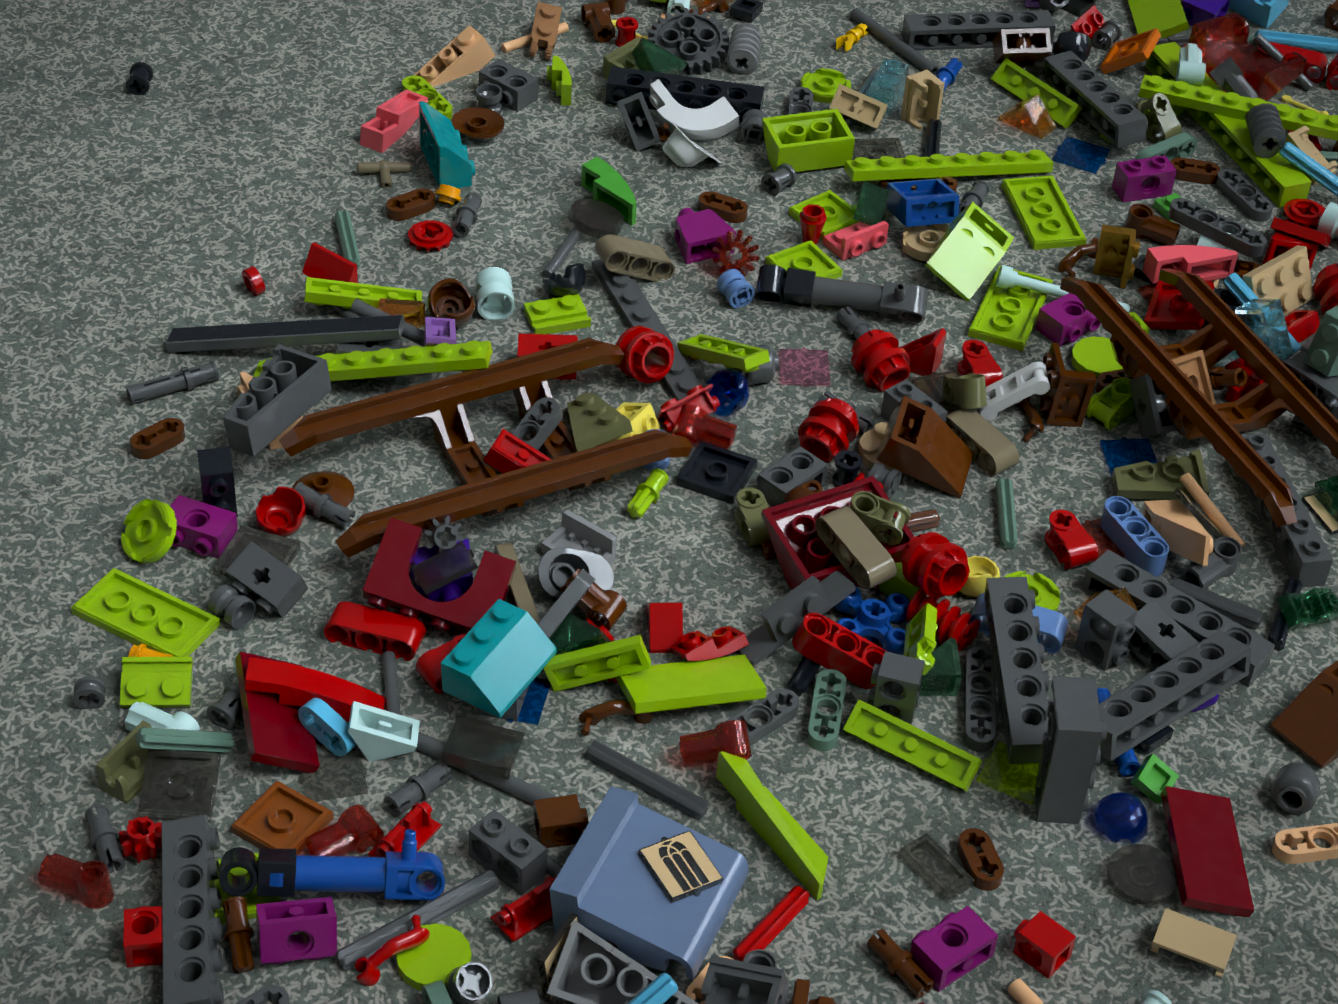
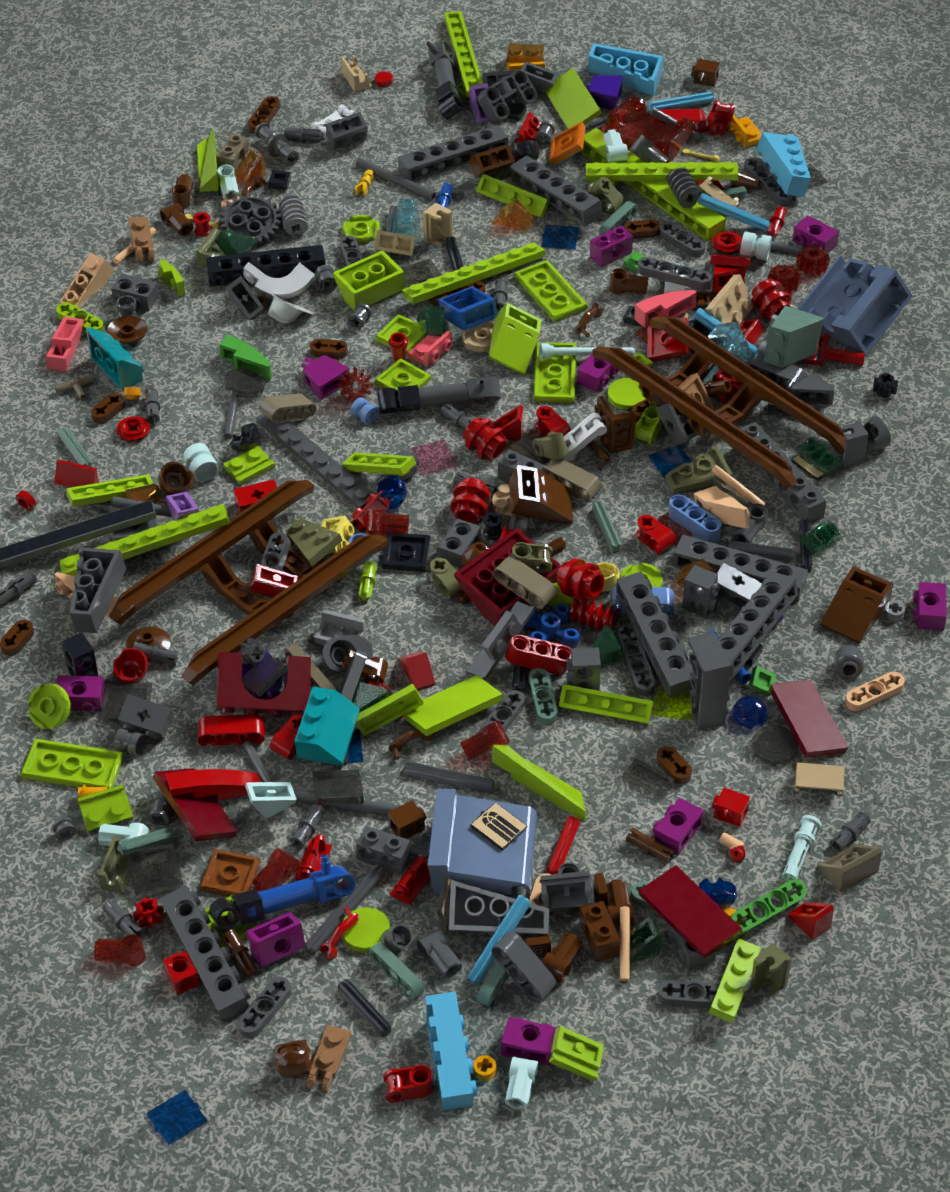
camera: 15 degrees left, 5 degrees up
(326, 726) = (233, 804): medium azure beam -> none
(647, 354) = (328, 479): red piece -> none
(698, 646) = (448, 678): red slope -> none
(921, 636) = (587, 630): lime hinge -> none
(1115, 253) = (614, 312): pearl gold bracket -> none

